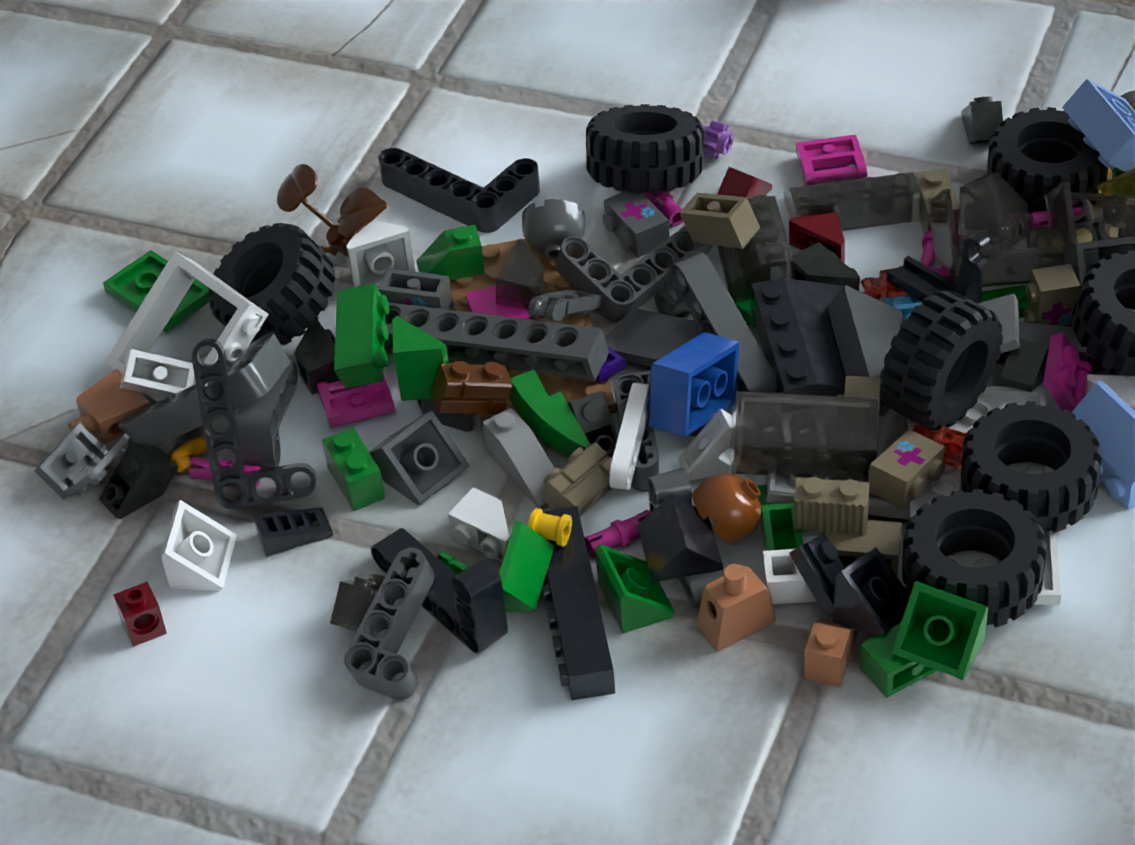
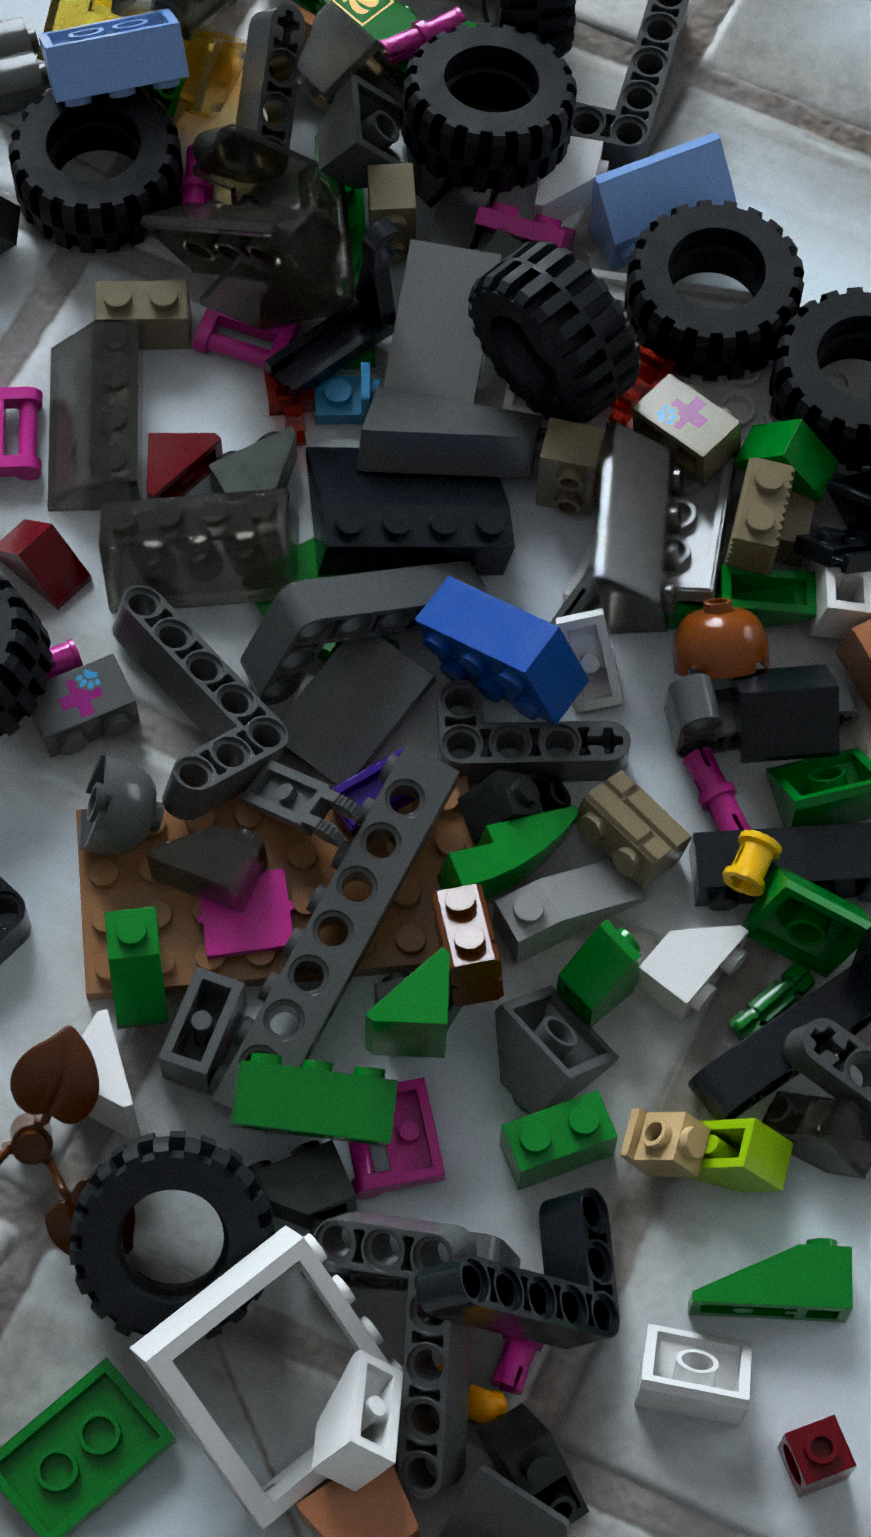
camera: 90 degrees left, 20 degrees up
(258, 599) = (796, 1284): none -> green slope
(274, 532) = (665, 1276): black slope -> none
(345, 557) = (745, 1156): none -> lime slope
(352, 517) = (665, 1143): none -> tan brick
(467, 470) = (601, 972): none -> green slope
(630, 437) = (588, 743): white beam -> none
(720, 220) = (181, 568): dark tan brick -> none
(888, 527) = (794, 445): none -> green slope

